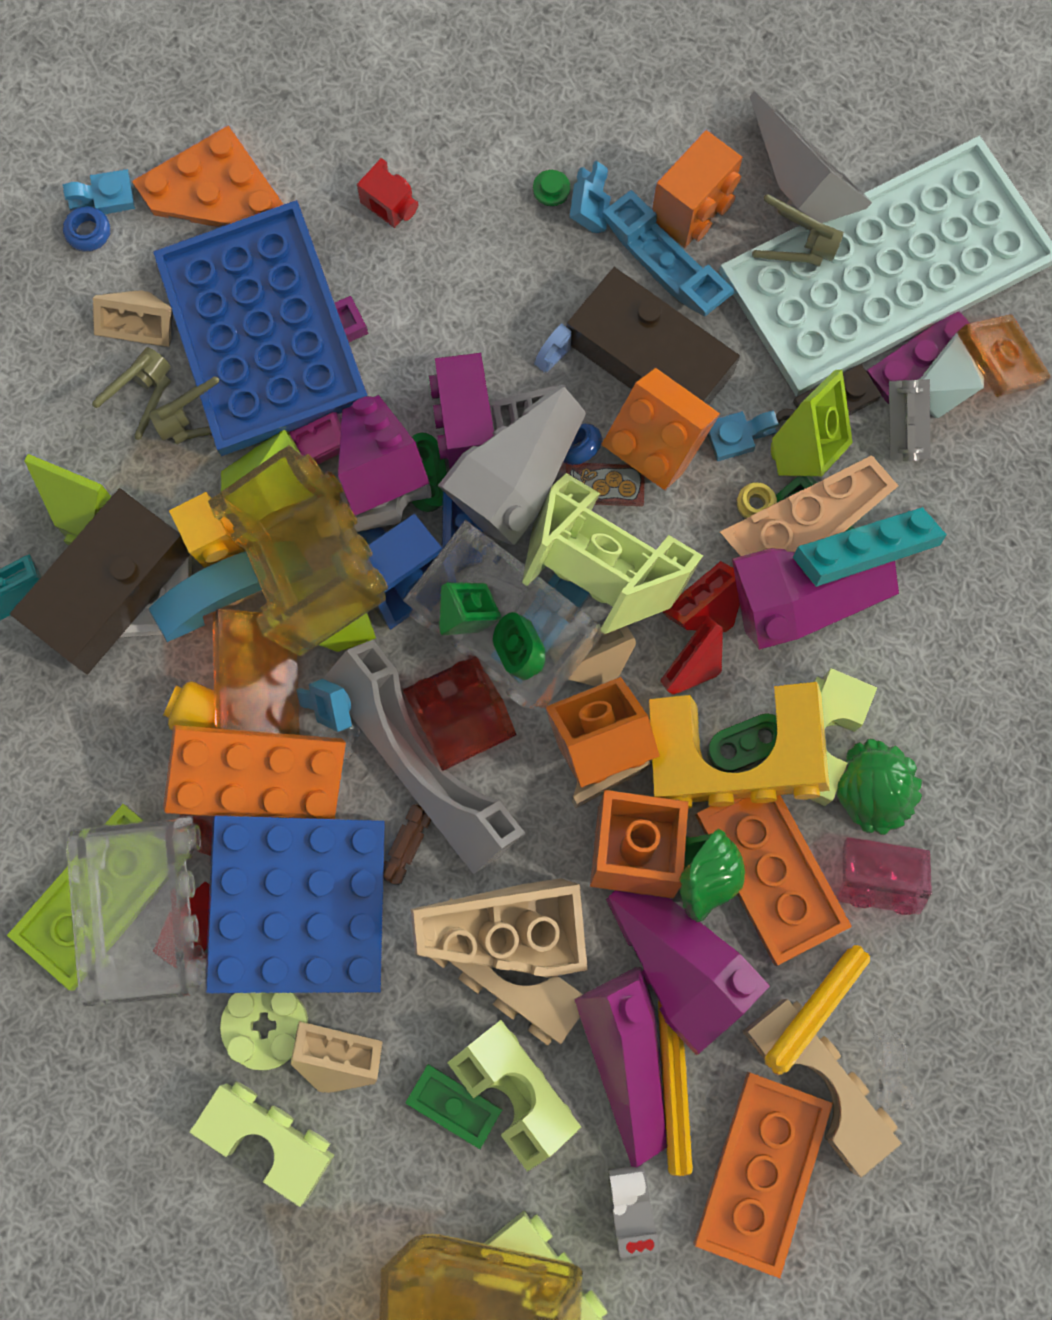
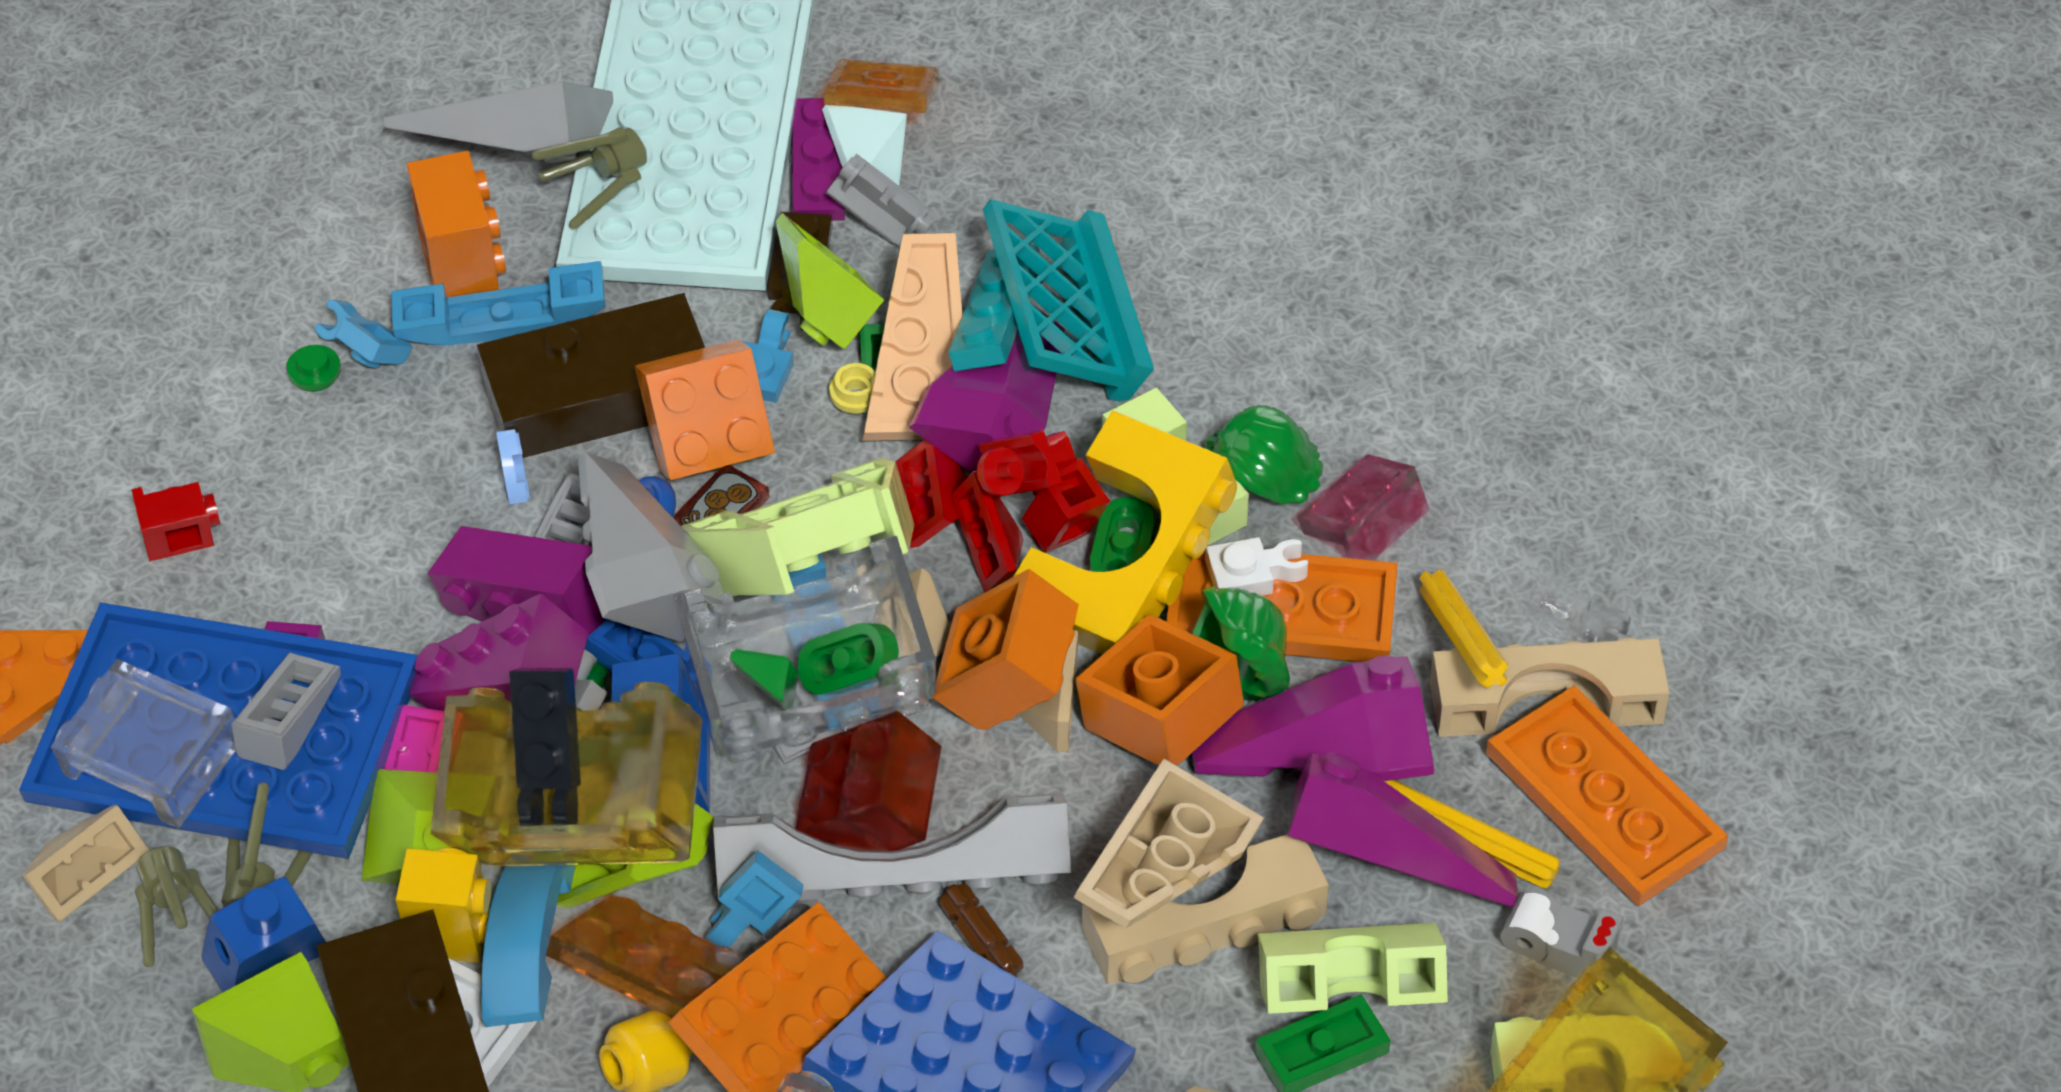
camera: 55 degrees left, 25 degrees down
(132, 450) = (258, 934): none -> blue torso
(206, 296) = (148, 739): none -> clear panel
(271, 366) = (278, 742): none -> light grey slope
(309, 523) = (545, 743): none -> black hinge
(740, 651) = (1023, 462): none -> red hips
(745, 690) = (1067, 509): none -> red brick
(774, 835) = (1252, 568): none -> white plate
(927, 605) = (1095, 291): none -> teal fence

